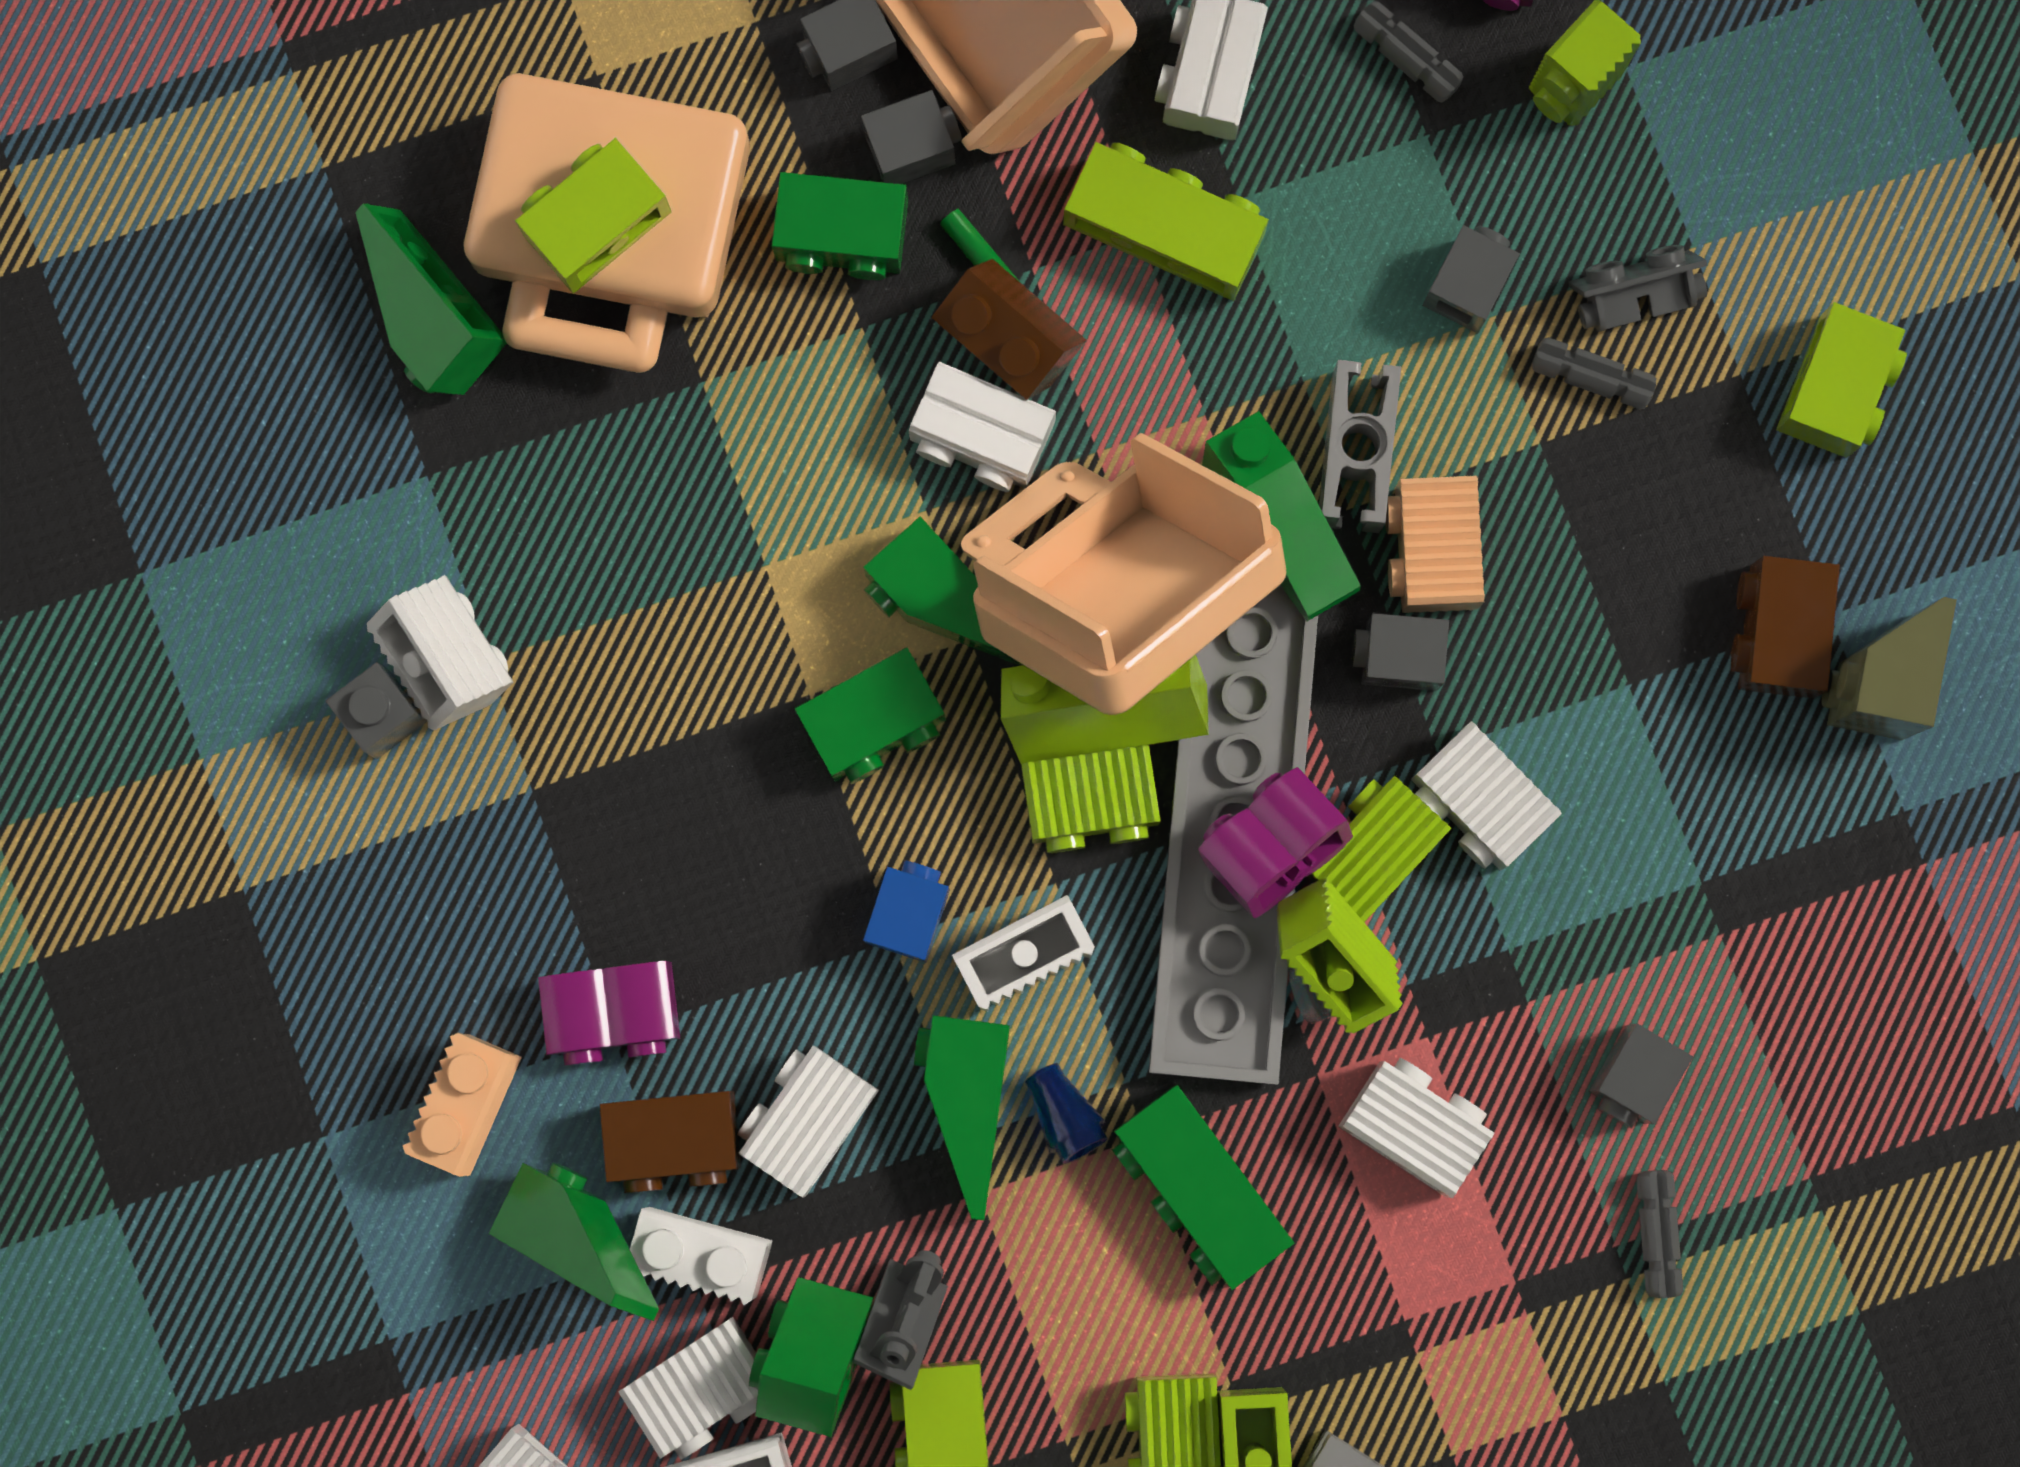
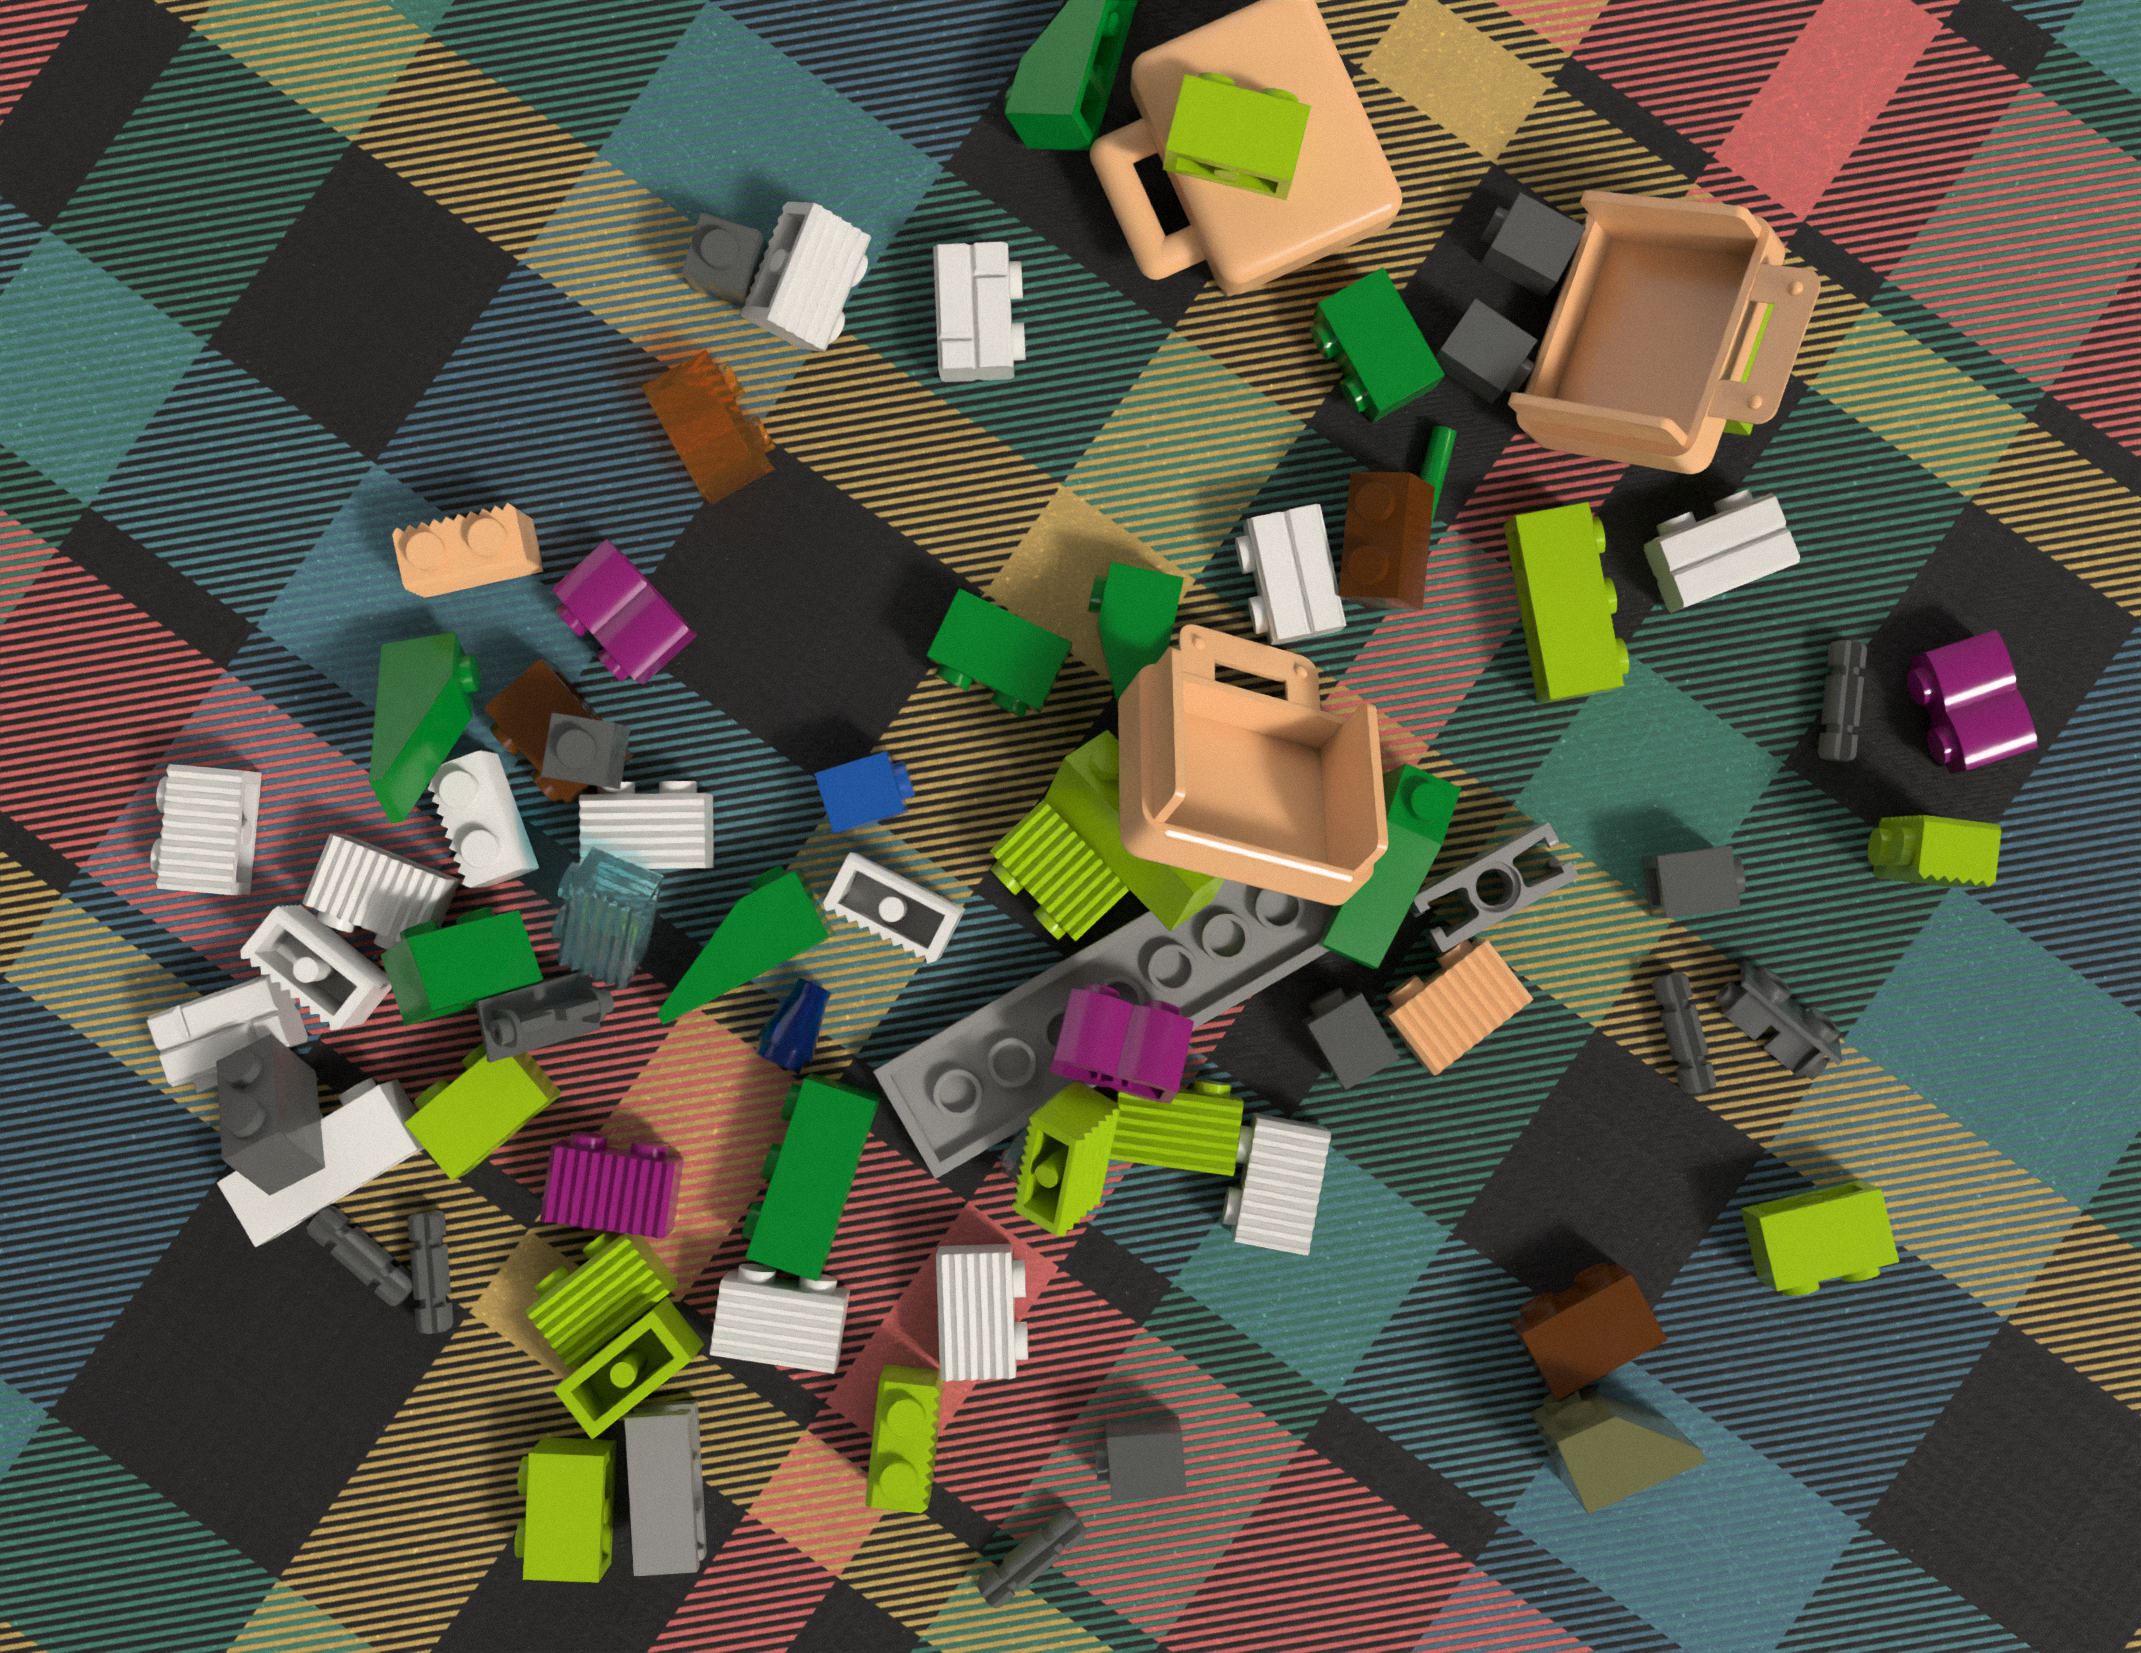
camera: 55 degrees right, 5 degrees up
(505, 823) = (709, 427): none -> clear orange brick
(571, 533) = (975, 311): none -> white brick
(709, 1114) = (585, 751): none -> dark grey brick
(859, 1202) = (606, 916): none -> clear light blue brick
(1090, 1366) = (612, 1185): none -> magenta brick
(1306, 1301) = (780, 1319): none -> white brick
(1481, 1267) = (904, 1439): none -> lime brick

